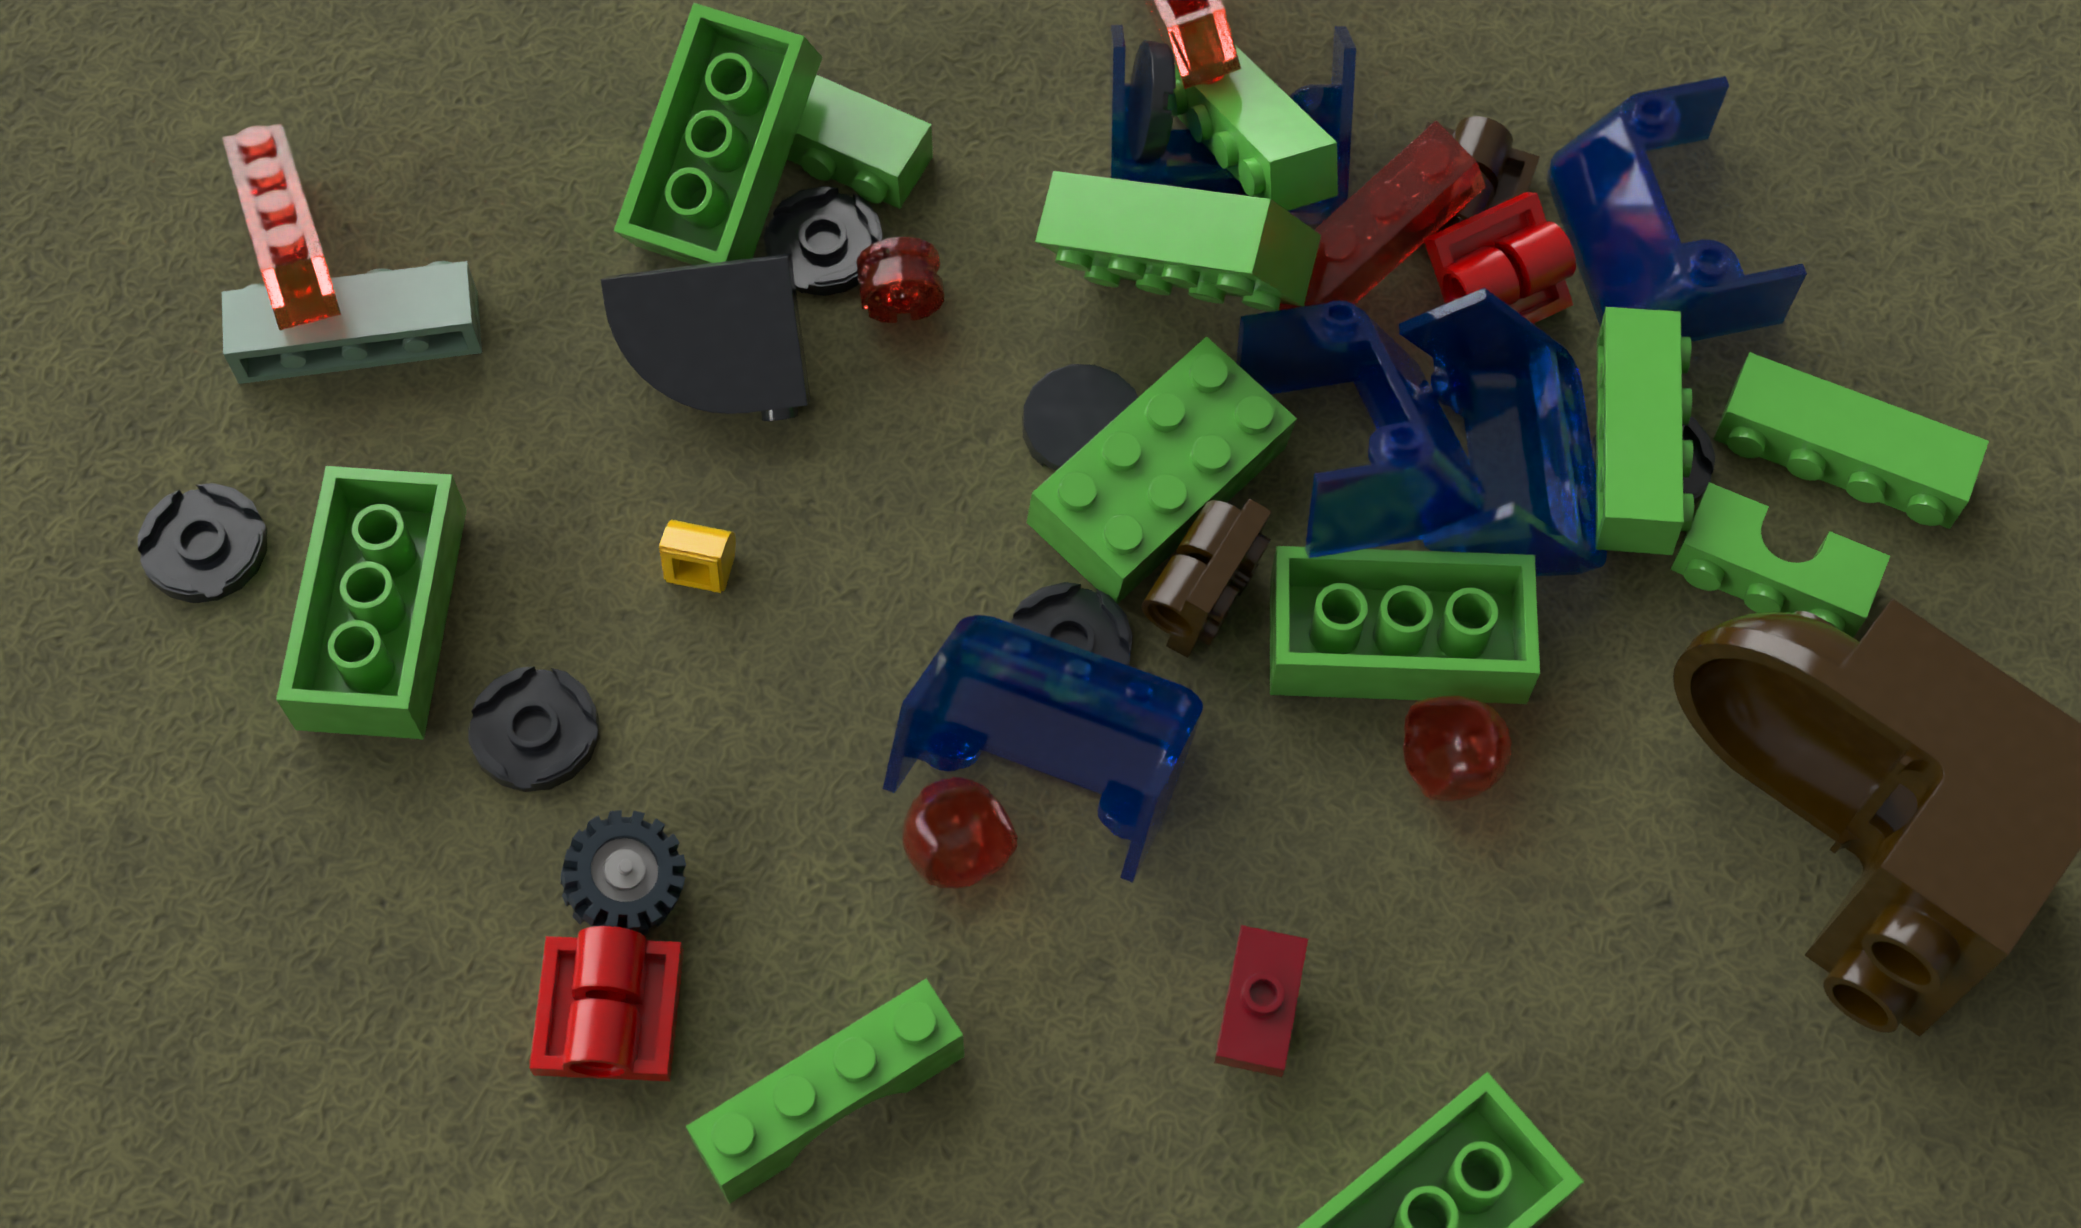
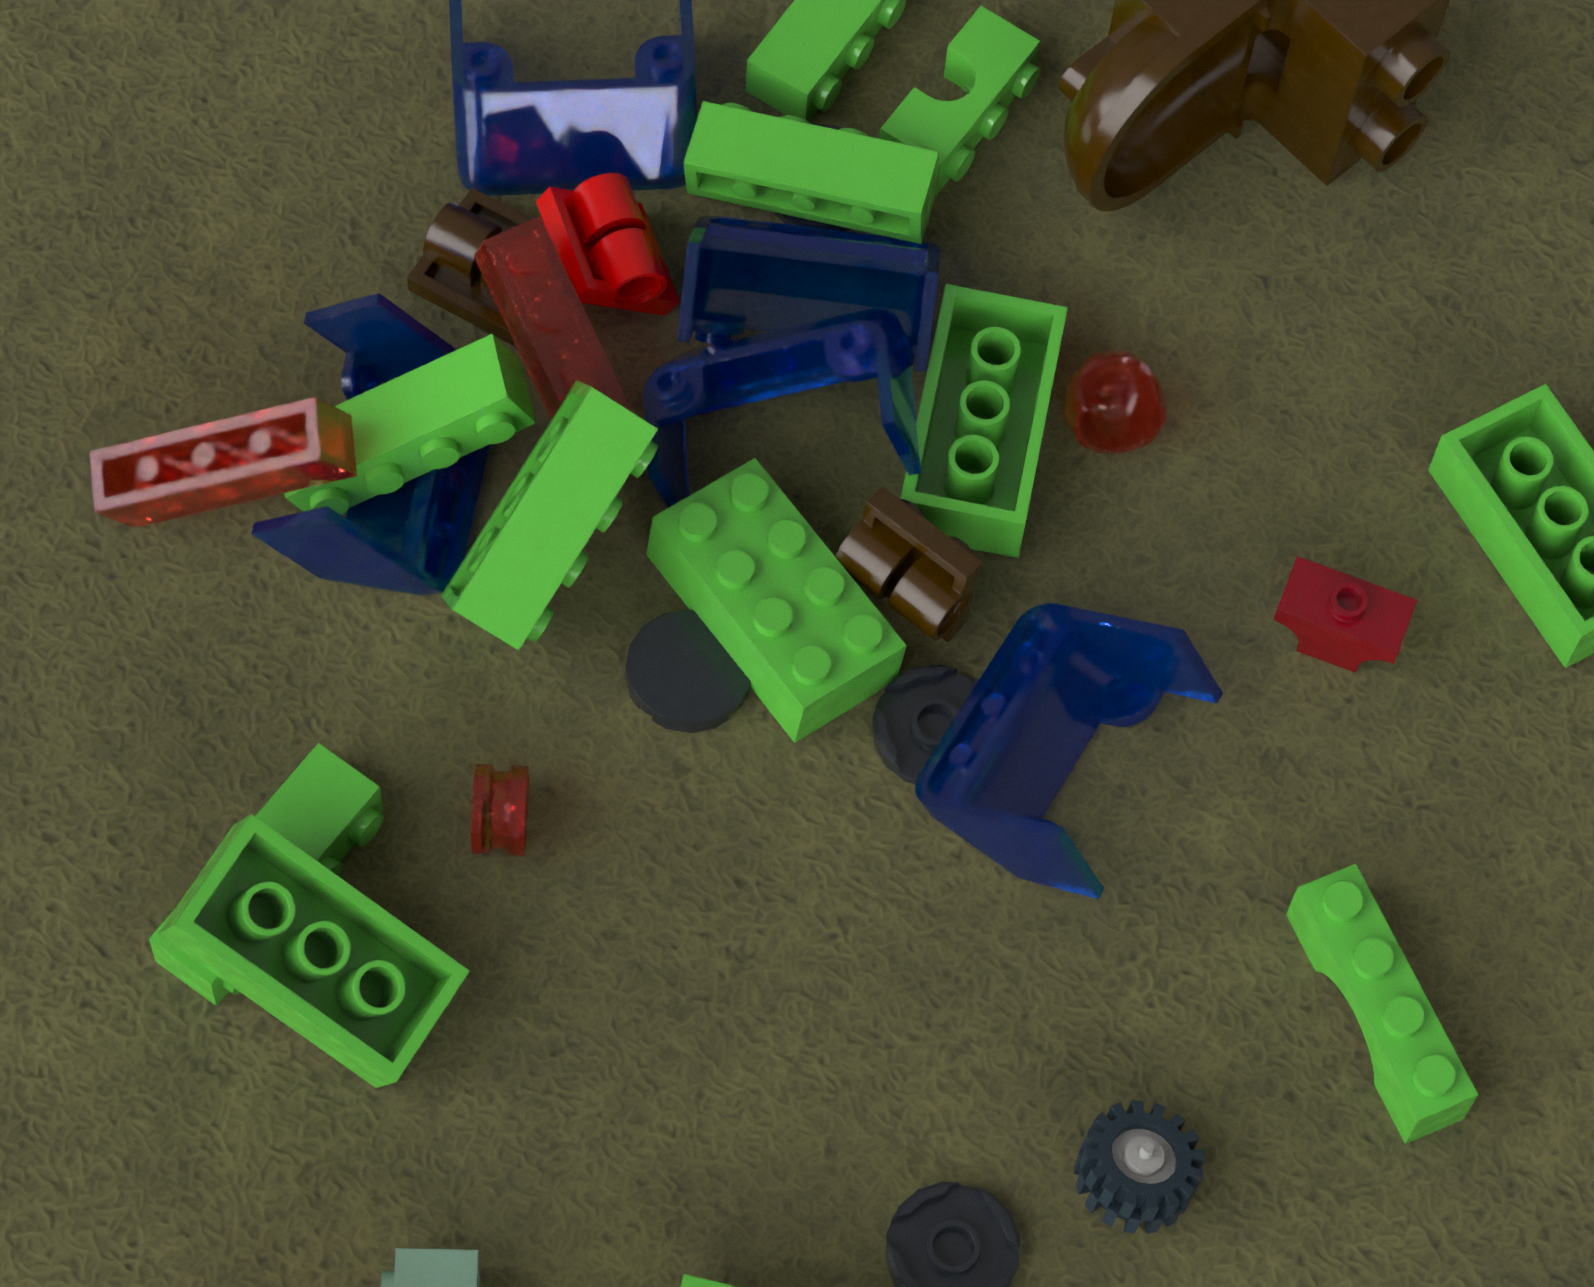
camera: 85 degrees left, 0 degrees up
(607, 1006) = (1271, 1201): red plate -> none
(697, 555) = (785, 1058): yellow brick -> none
(715, 334) = (542, 991): black brick -> none
(823, 260) = (432, 909): black tile -> none
(957, 833) = (1137, 849): clear red hair -> none
(1148, 117) = (367, 502): black tile -> none

